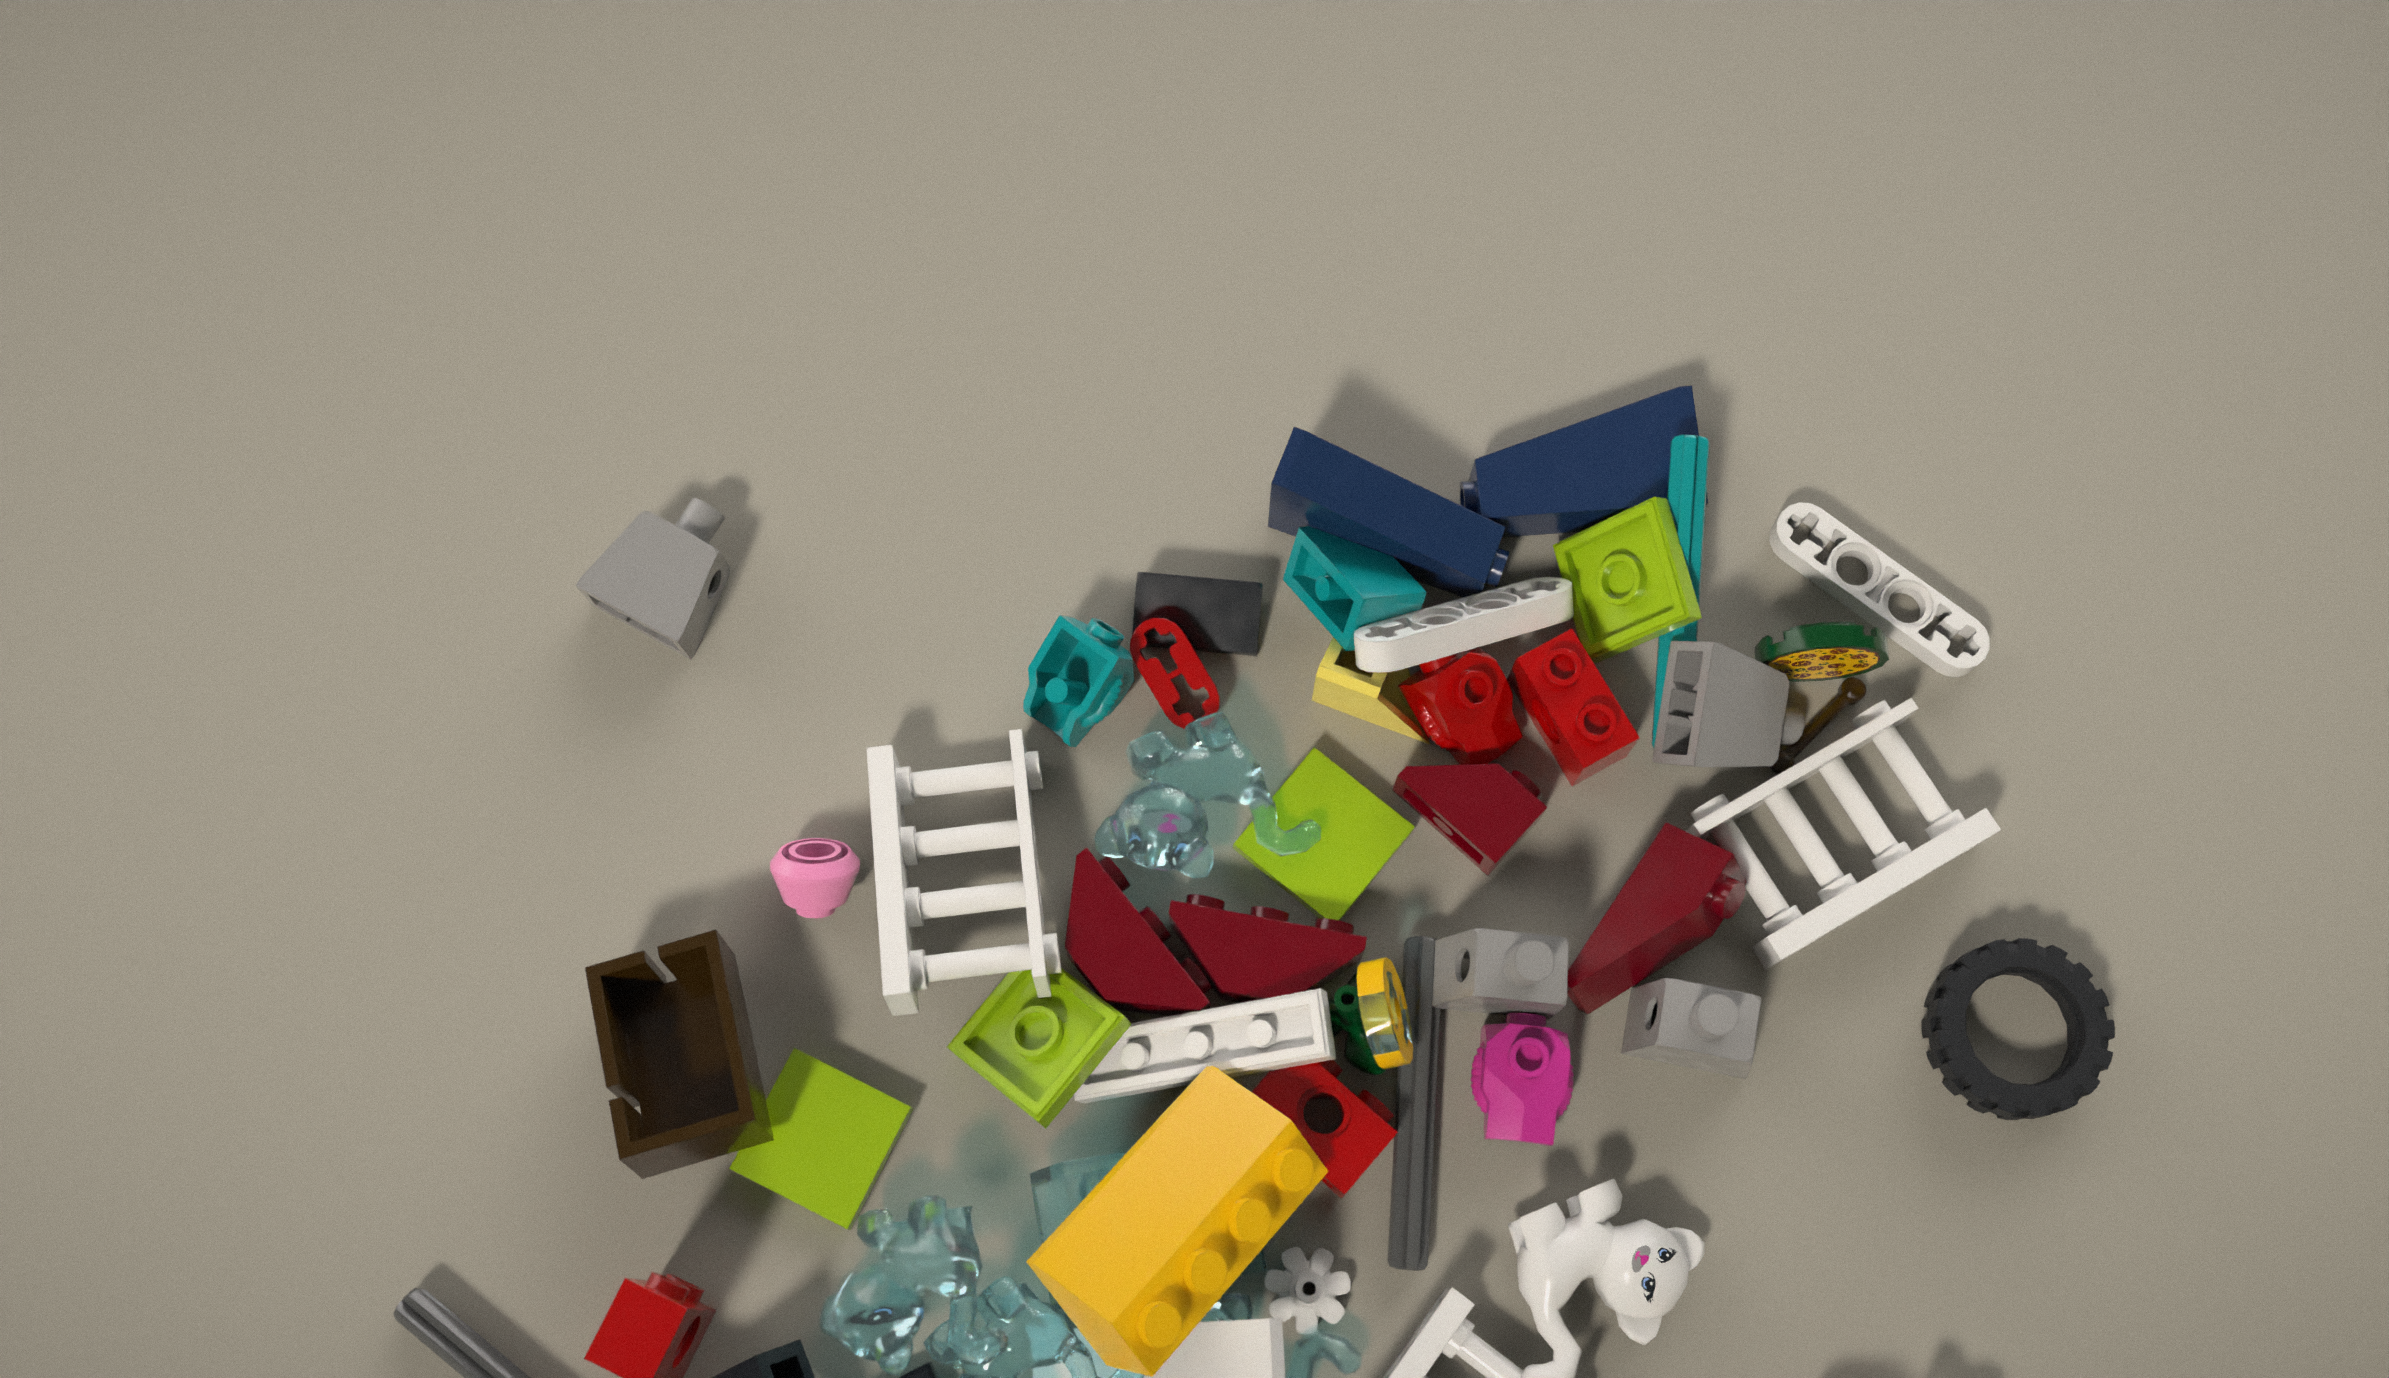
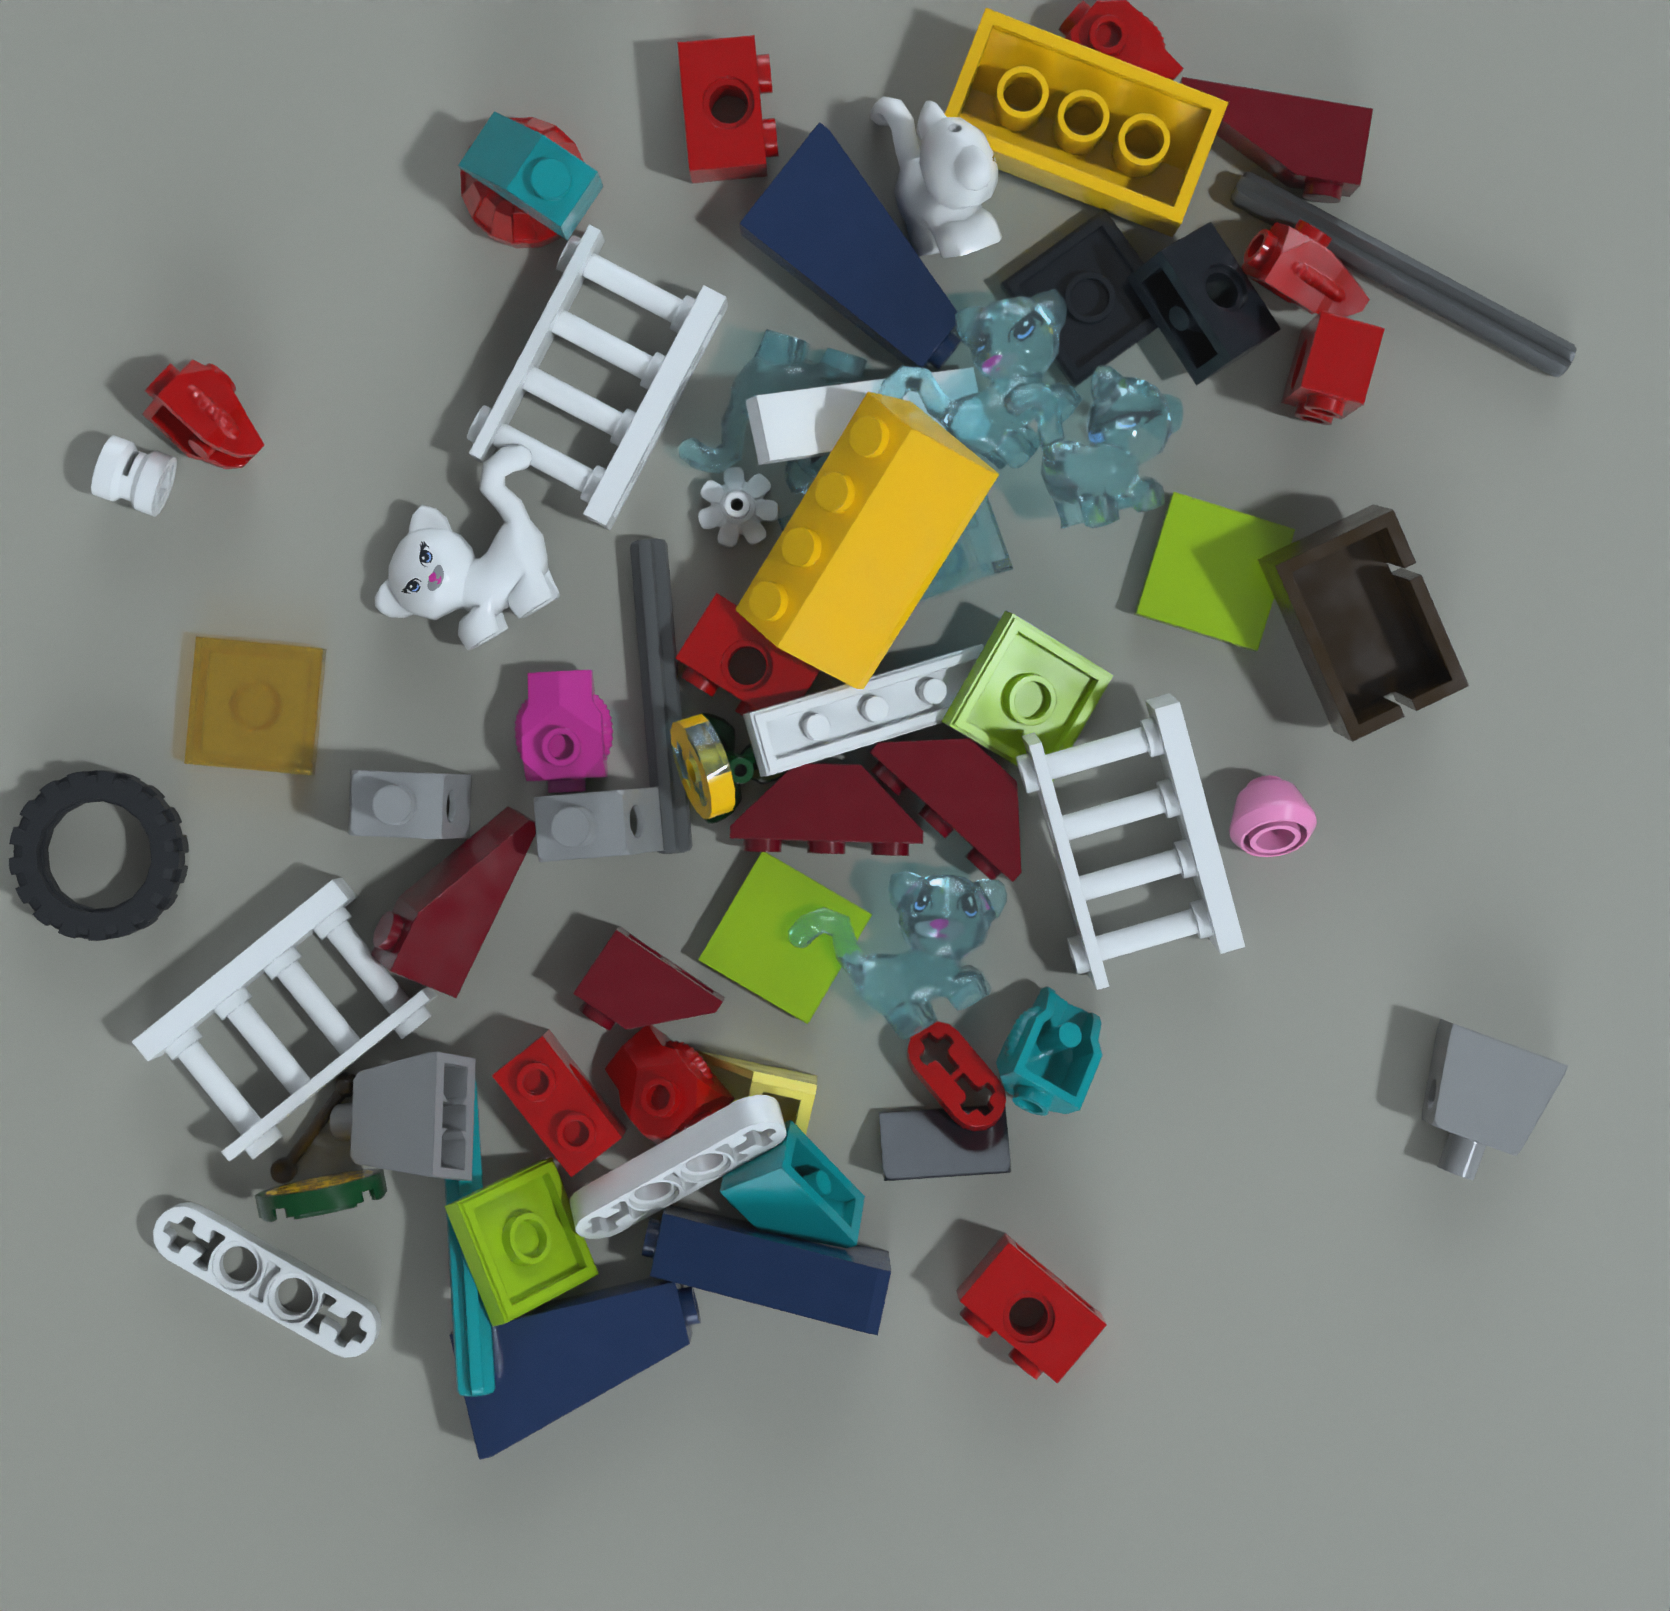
camera: 165 degrees right, 15 degrees up
(1151, 480) = (1014, 1274): none -> red brick
(1841, 1160) = (255, 706): none -> clear yellow tile

